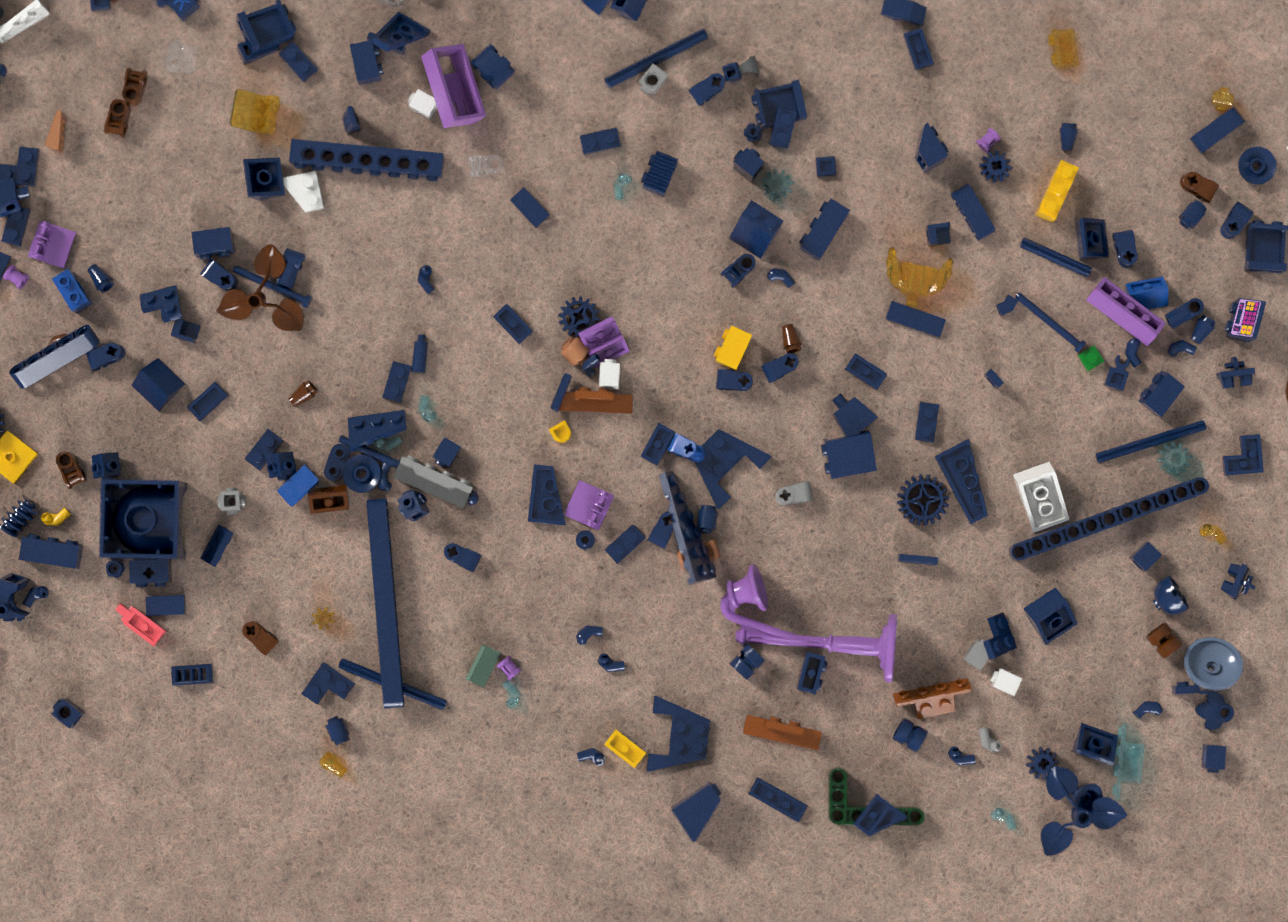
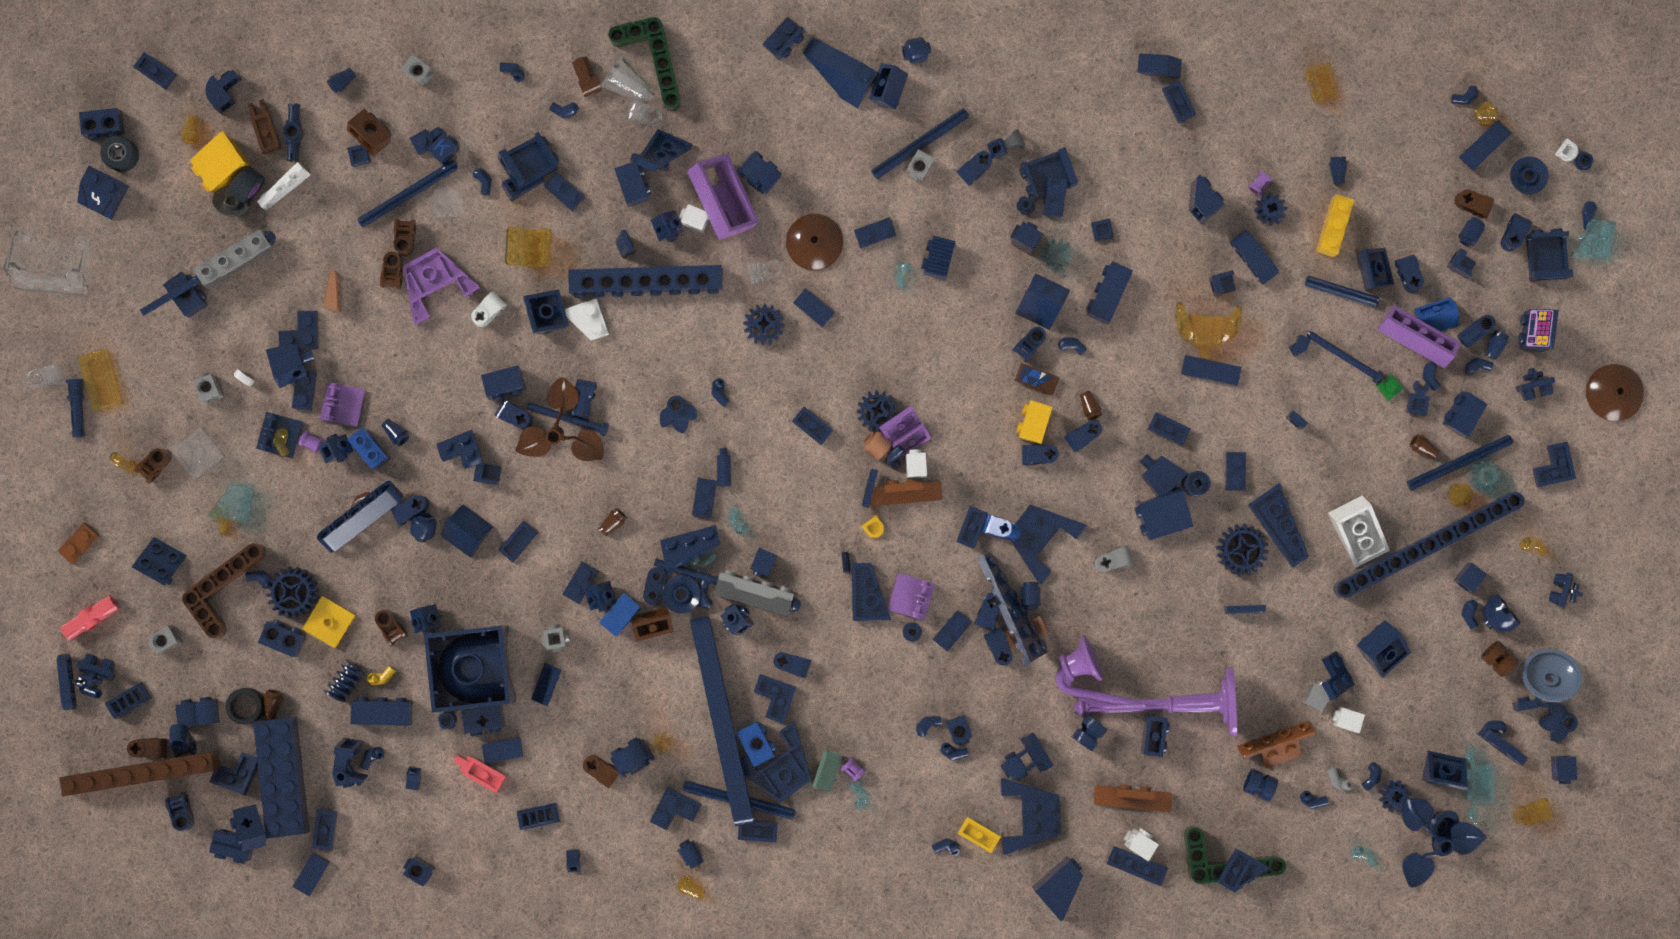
camera: 10 degrees left, 0 degrees up
(39, 286) = (335, 448): none -> dark blue brick
(74, 621) = (413, 778): none -> dark blue piece
(115, 375) = (423, 527): none -> dark blue head
(143, 44) = (407, 194): none -> dark blue axle
(153, 127) = (429, 275): none -> medium lavender wing
(209, 168) = (489, 308): none -> white piece
(221, 39) = (485, 180): none -> dark blue arm
(221, 722) = (573, 860): none -> dark blue piece
(291, 628) = (632, 758): none -> dark blue brick
(381, 298) = (677, 417): none -> dark blue plate
(395, 108) = (667, 226): none -> dark blue brick
(407, 623) = (756, 755): none -> blue brick
(407, 717) = (758, 831): none -> dark blue plate
(442, 662) = (785, 773): none -> dark blue wing
(446, 584) = (780, 694): none -> dark blue plate
(467, 215) = (755, 324): none -> dark blue gear
(528, 462) = (845, 562): none -> dark blue piece
(539, 155) = (814, 255): none -> reddish brown dish
(619, 634) = (959, 721): none -> dark blue brick
(668, 562) = (997, 643): none -> dark blue piece
(668, 685) = (1014, 766): none -> dark blue tile
(741, 305) = (1036, 379): none -> slope
(783, 776) = (1140, 843): none -> white brick
(885, 429) = (1196, 483): none -> dark blue wheel
(1025, 741) = (1375, 776): none -> dark blue arm
(1115, 420) = (1423, 446): none -> reddish brown cone
(1139, 591) = (1468, 613): none -> dark blue arm
(1146, 473) = (1460, 494): none -> clear yellow gear
(1154, 726) = (1503, 746): none -> dark blue beam
(1178, 245) = (1461, 264): none -> dark blue panel
(1181, 797) = (1536, 812): none -> clear yellow piece
(1206, 81) = (1471, 94): none -> dark blue arm

